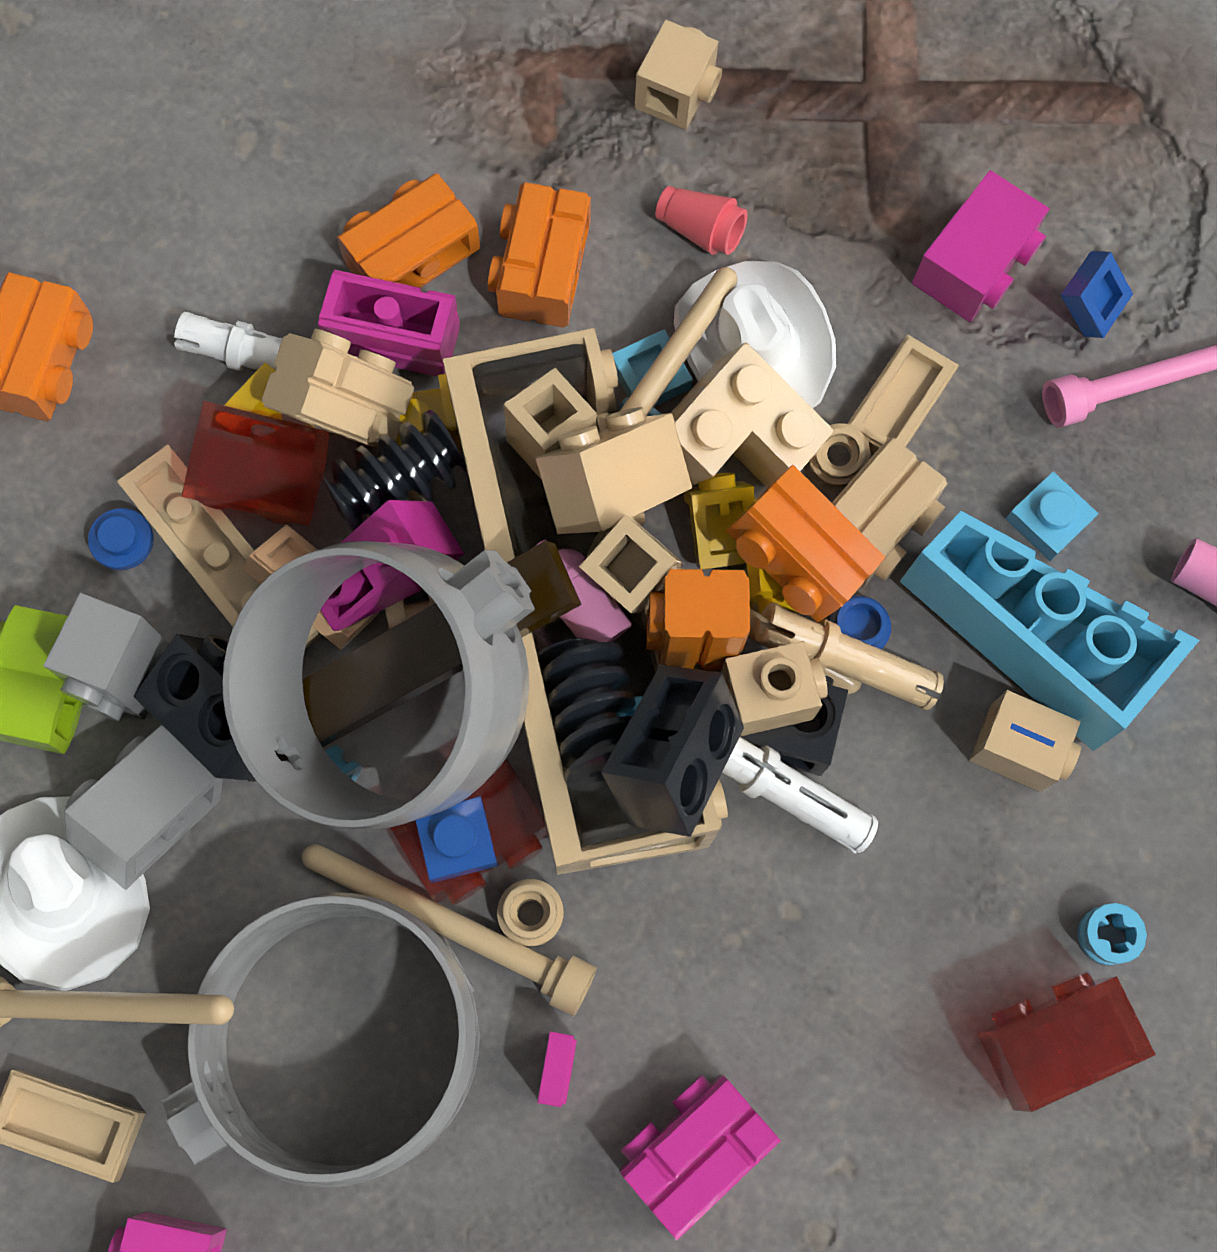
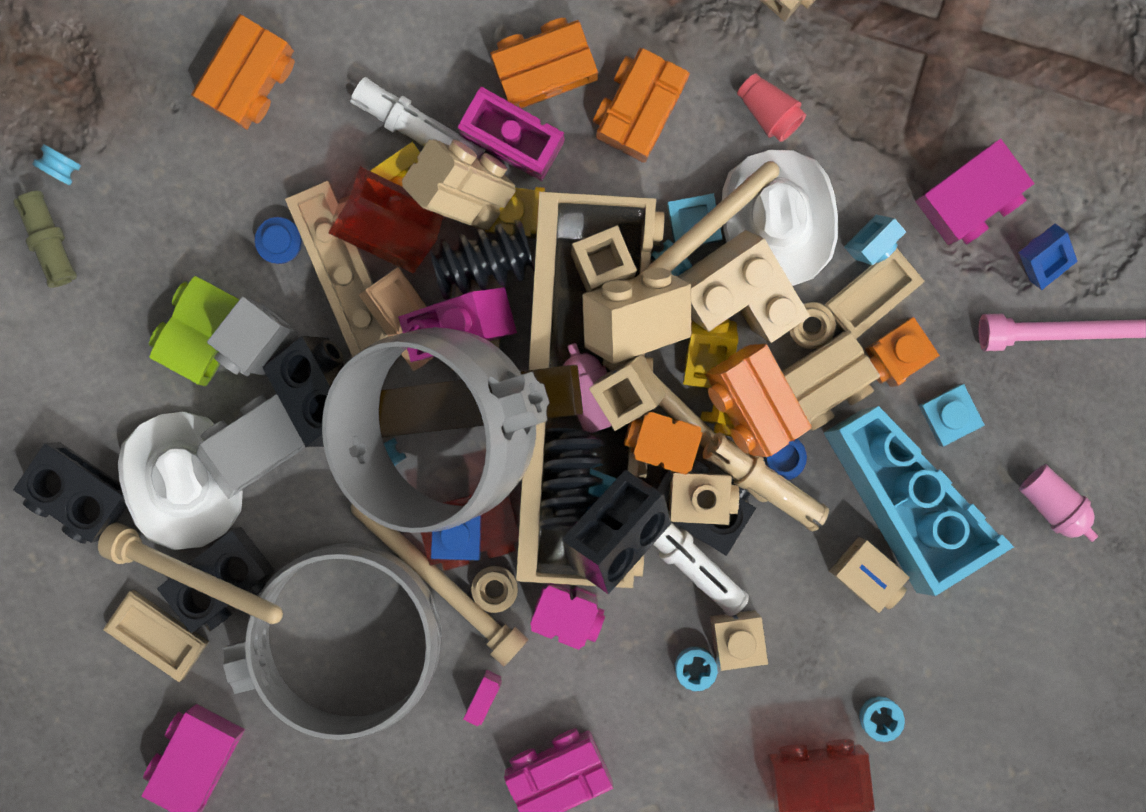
camera: 20 degrees right, 15 degrees up
(131, 972) = (215, 562): none -> black brick
(641, 903) = (567, 614): none -> dark pink brick
(854, 954) = (704, 680): none -> medium azure bush
(882, 331) = (875, 240): none -> medium azure plate
(884, 878) = (739, 640): none -> tan brick
(964, 456) = (901, 353): none -> orange bracket

